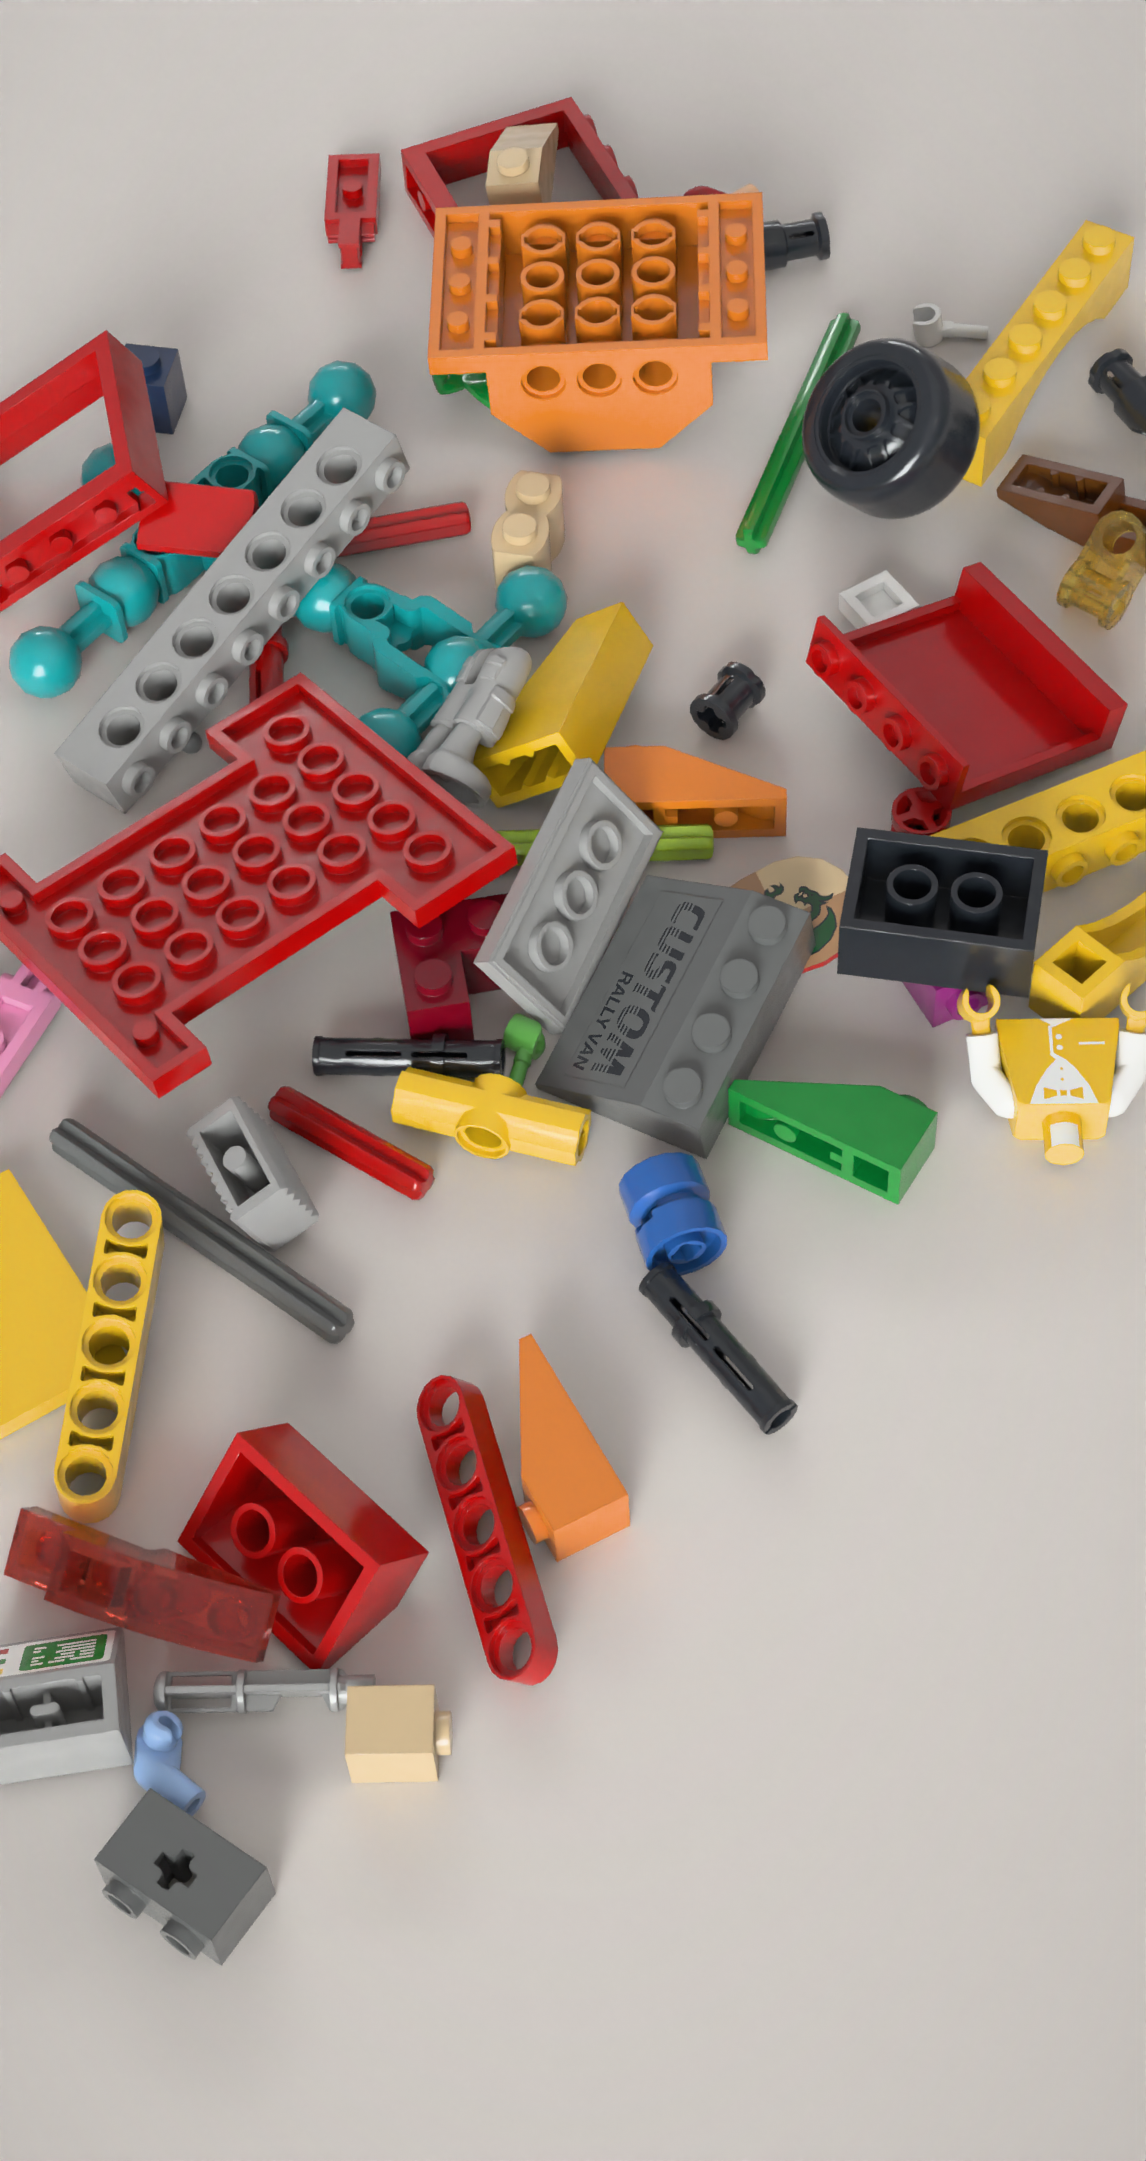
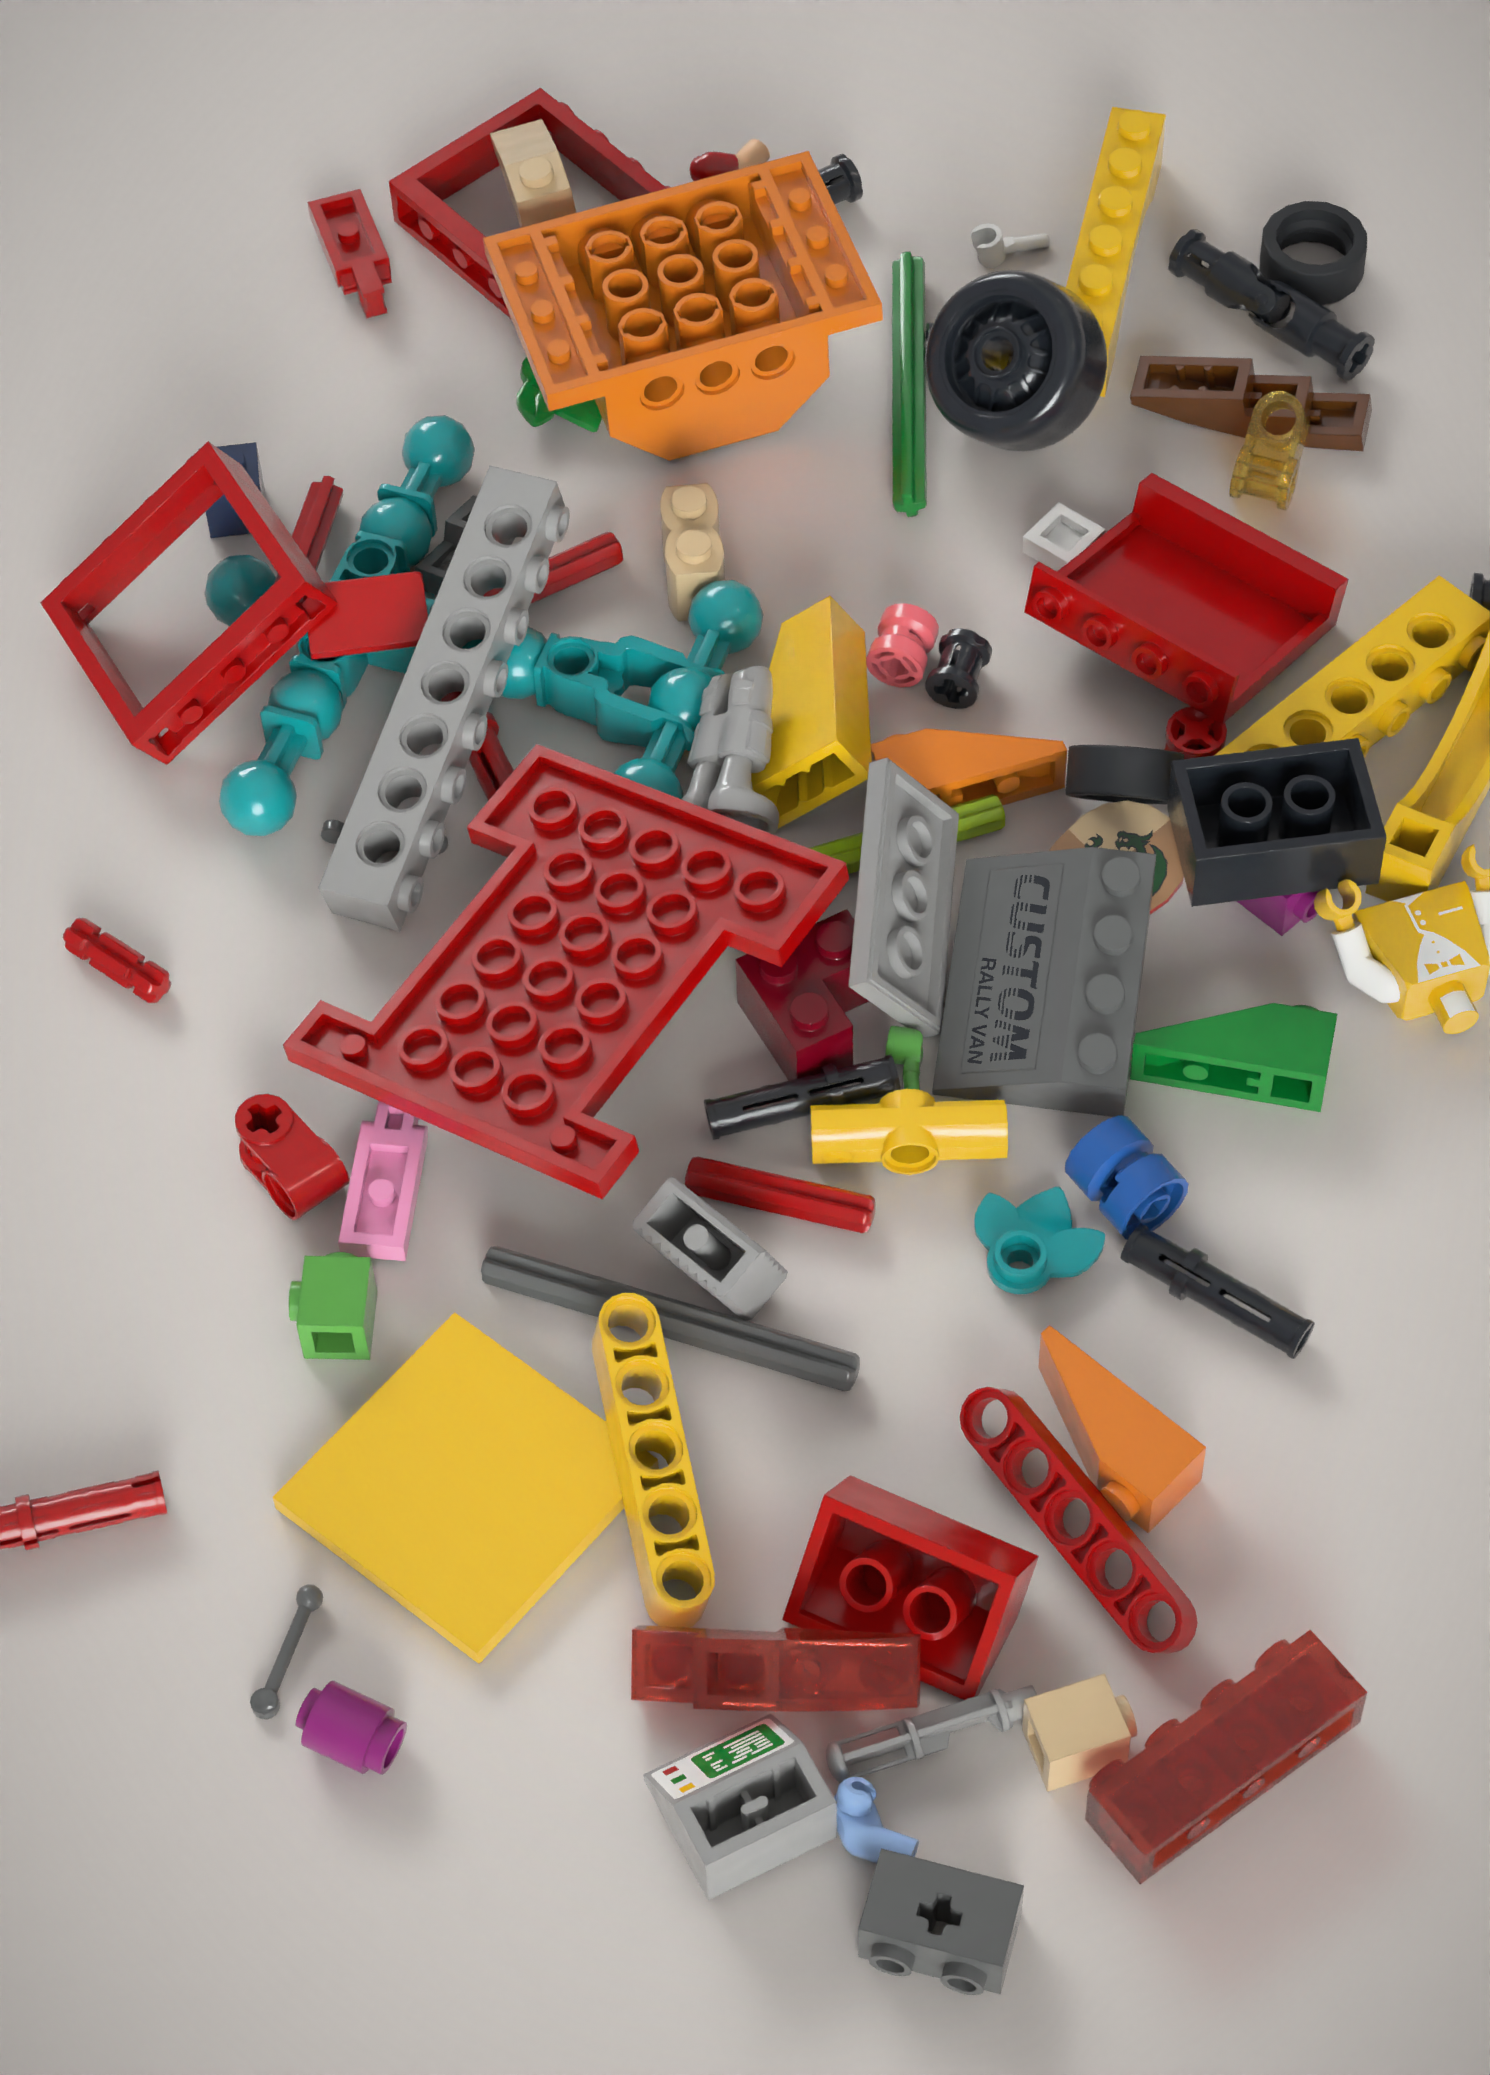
camera: 20 degrees left, 0 degrees up
(201, 437) = (317, 520): none -> red axle
(520, 1799) = (1223, 1754): none -> clear red brick
(572, 1246) = (1035, 1234): none -> teal plate
(689, 660) = (902, 645): none -> coral wheel
(819, 829) = (1119, 773): none -> black tyre

